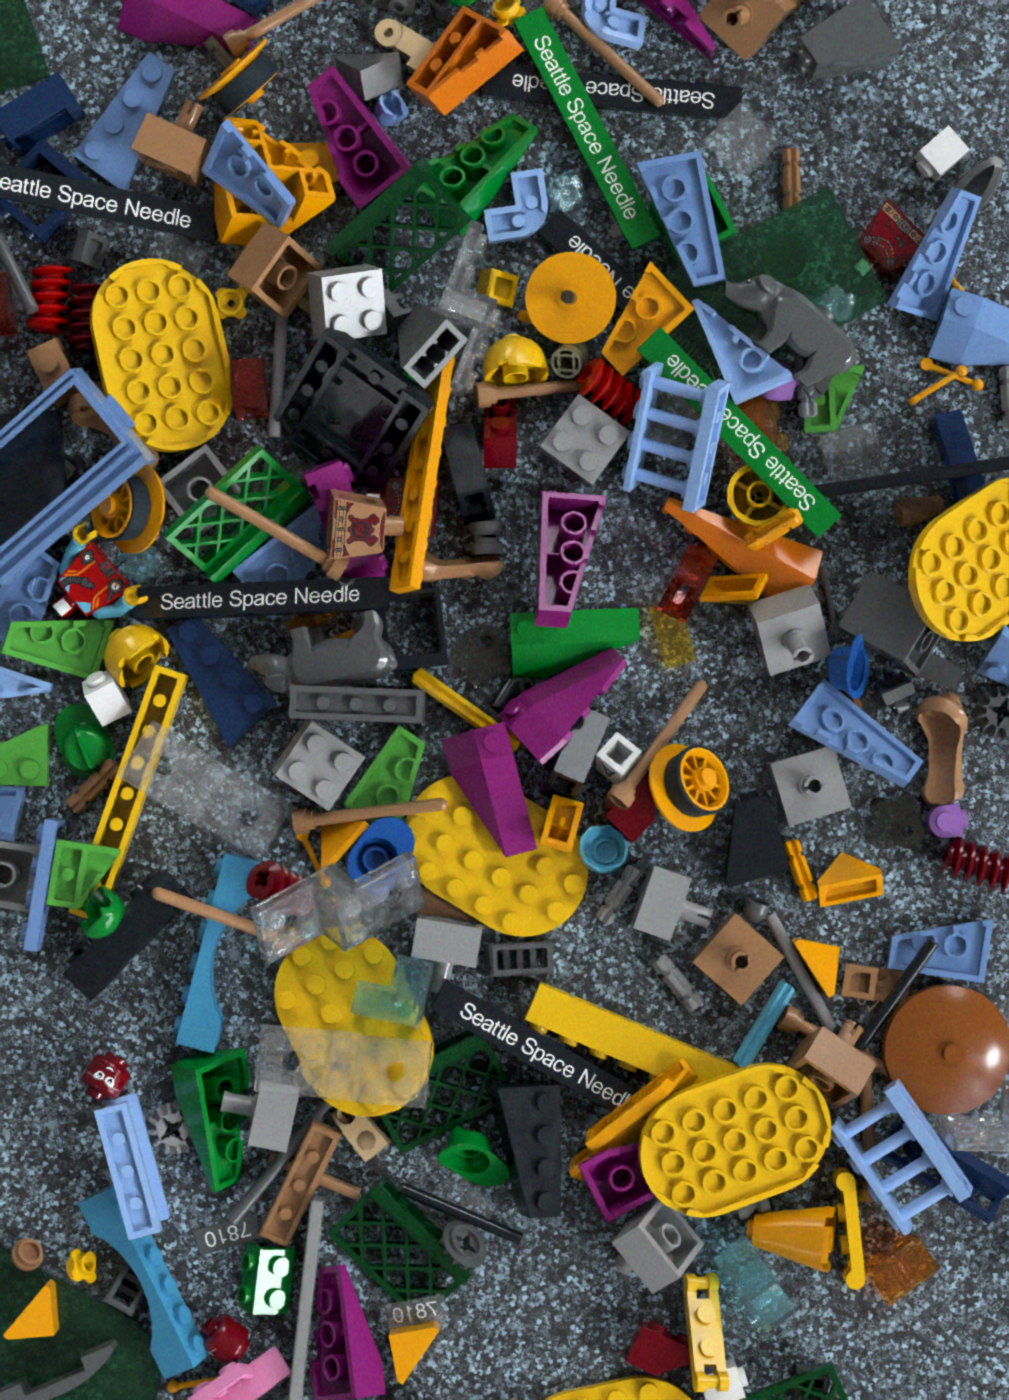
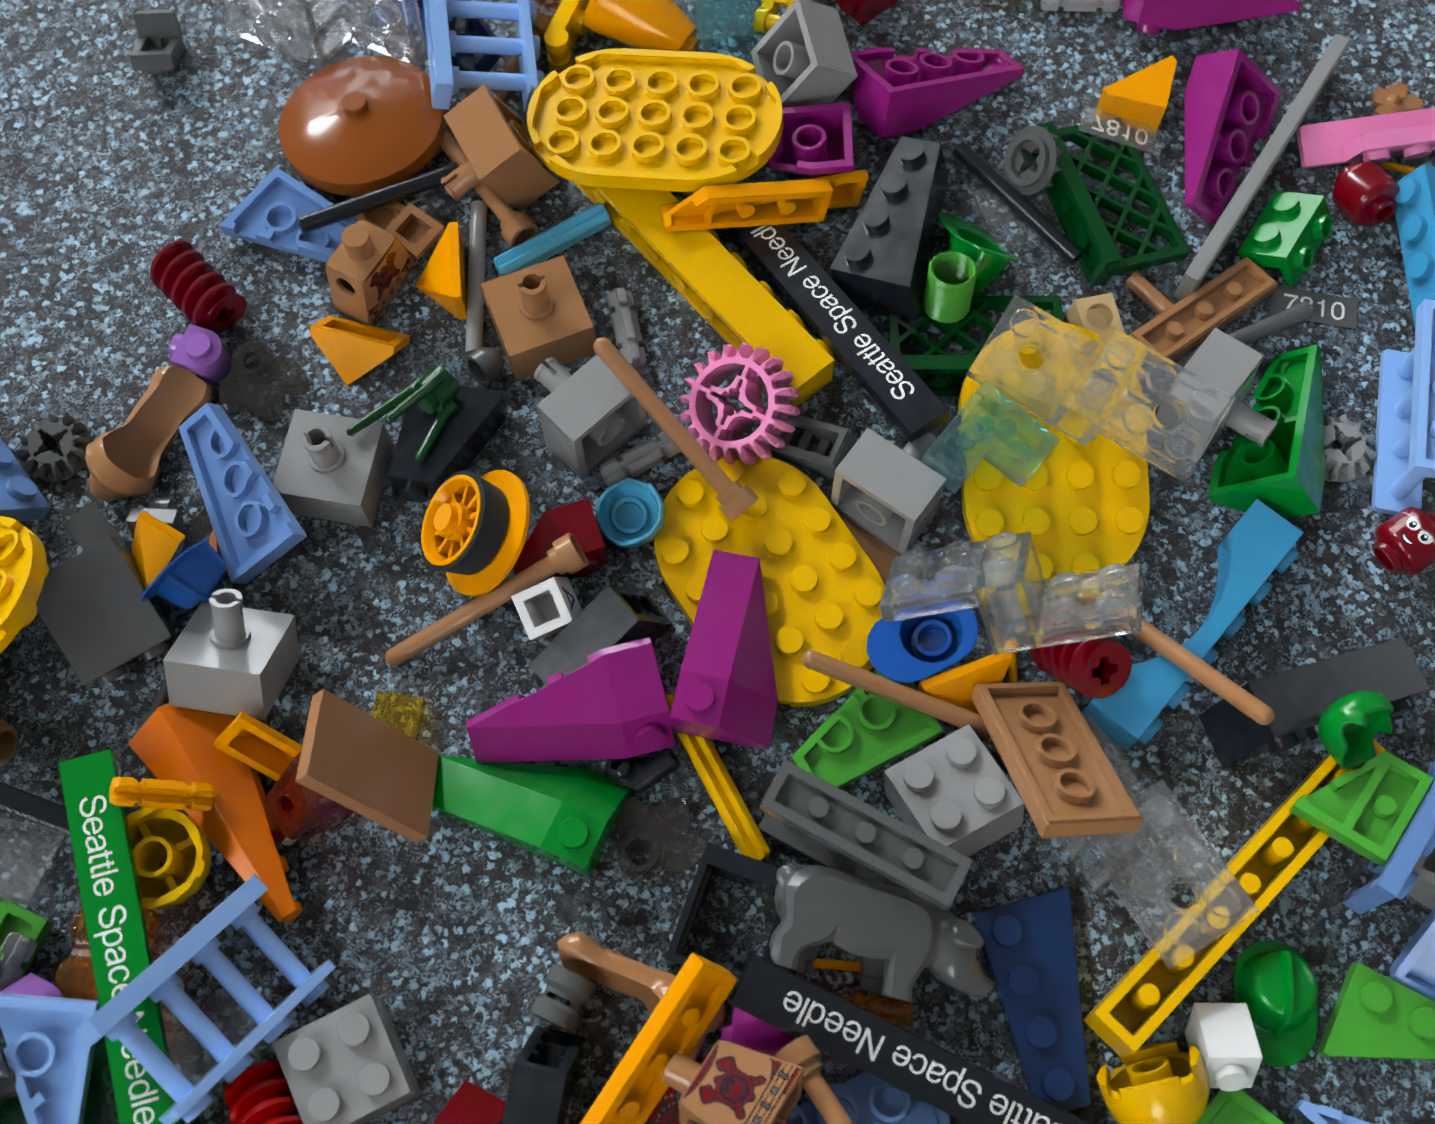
camera: 150 degrees left, 20 degrees down
(93, 786) = (1287, 929): medium nougat axle -> none
(269, 811) = (1055, 760): none -> medium nougat tile
(480, 1126) = (949, 286): none -> bright green piece
(539, 888) = (732, 495): none -> medium nougat piece
(561, 823) = (668, 558): light orange slope -> none
(563, 547) = (464, 915): magenta wedge -> none
(572, 1276) = (910, 92): none -> magenta wedge
(595, 954) = (748, 389): none -> bright pink gear
(664, 605) = (368, 766): none -> medium nougat tile
(766, 860) = (430, 393): none -> dark green plant
(800, 870) = (413, 359): light orange axle -> none
(869, 933) = (367, 271): none -> medium nougat torso
(878, 669) = (154, 546): none -> light orange slope

